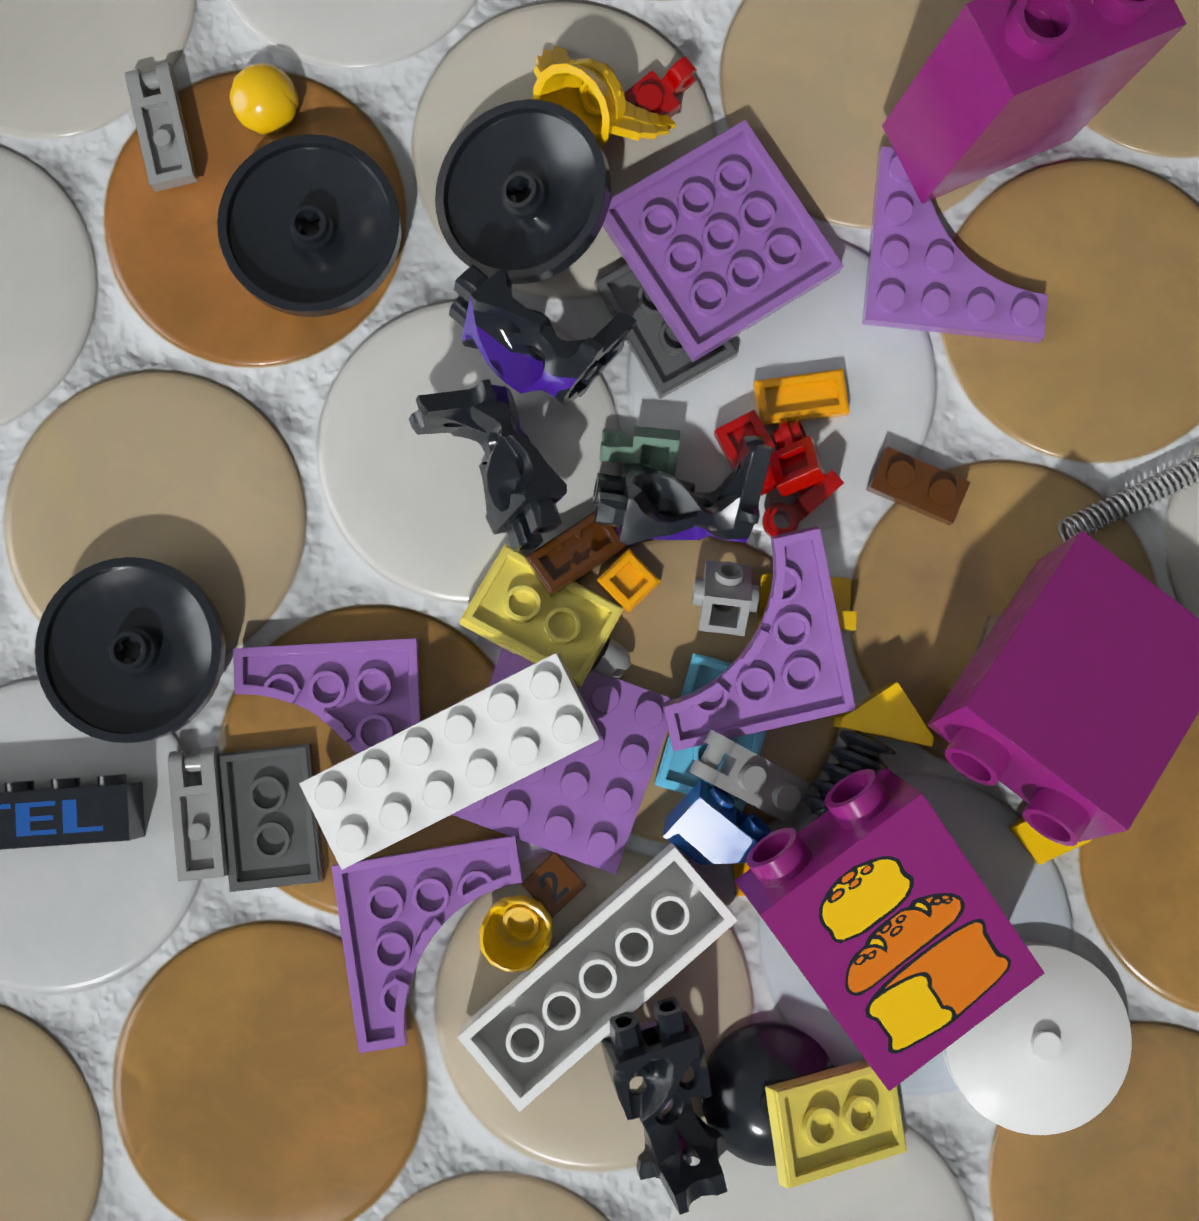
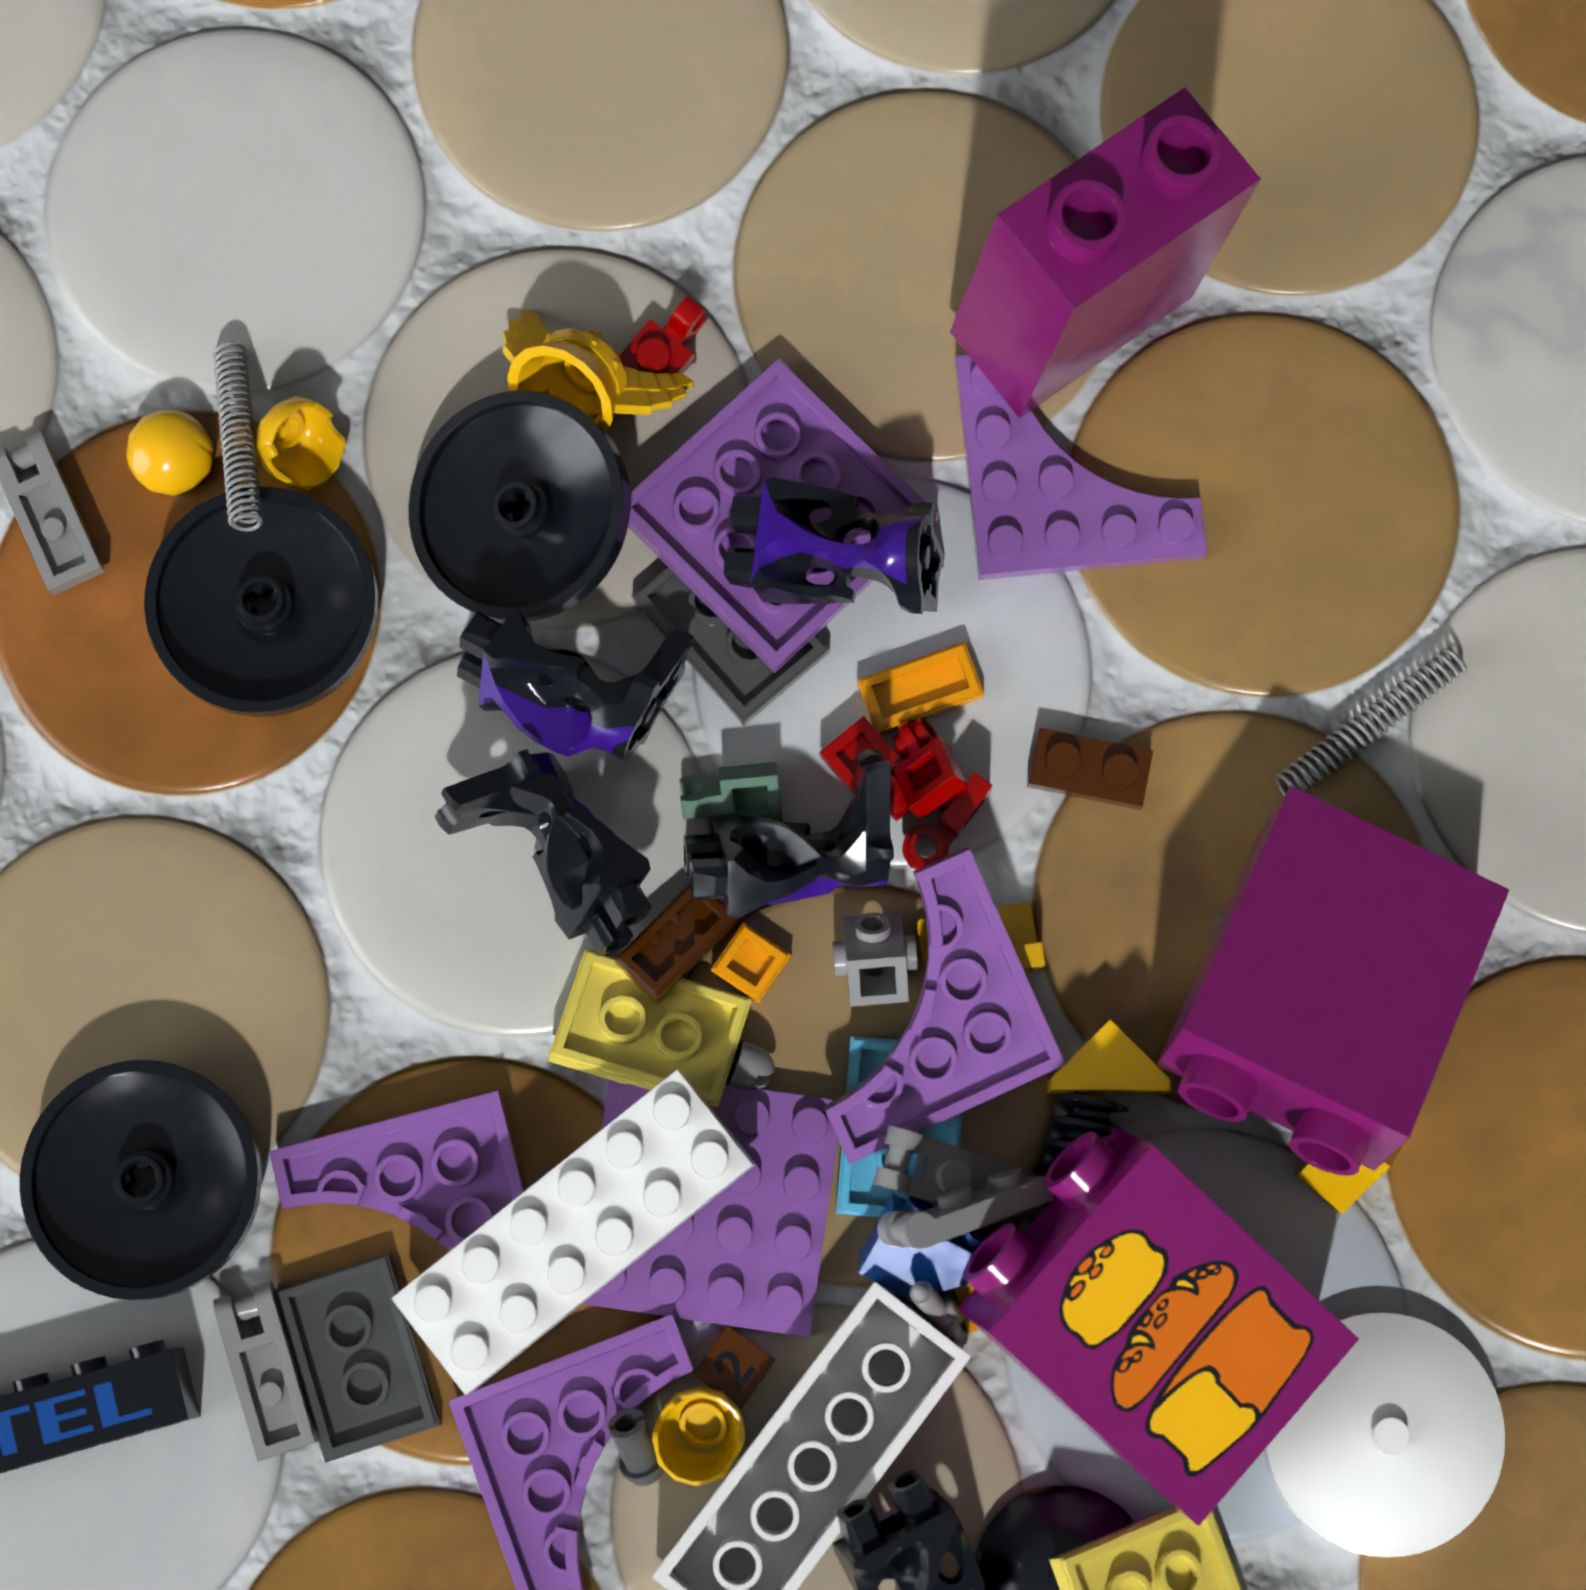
camera: 10 degrees left, 5 degrees down
(324, 83) = (252, 469): none -> light grey piece
(363, 109) = (299, 443): none -> yellow hair
(465, 929) = (635, 1447): none -> dark grey pin
(721, 881) = (941, 1313): none -> light grey piece
(729, 264) = (790, 547): none -> black hips
(756, 808) = (964, 1210): none -> light grey plate

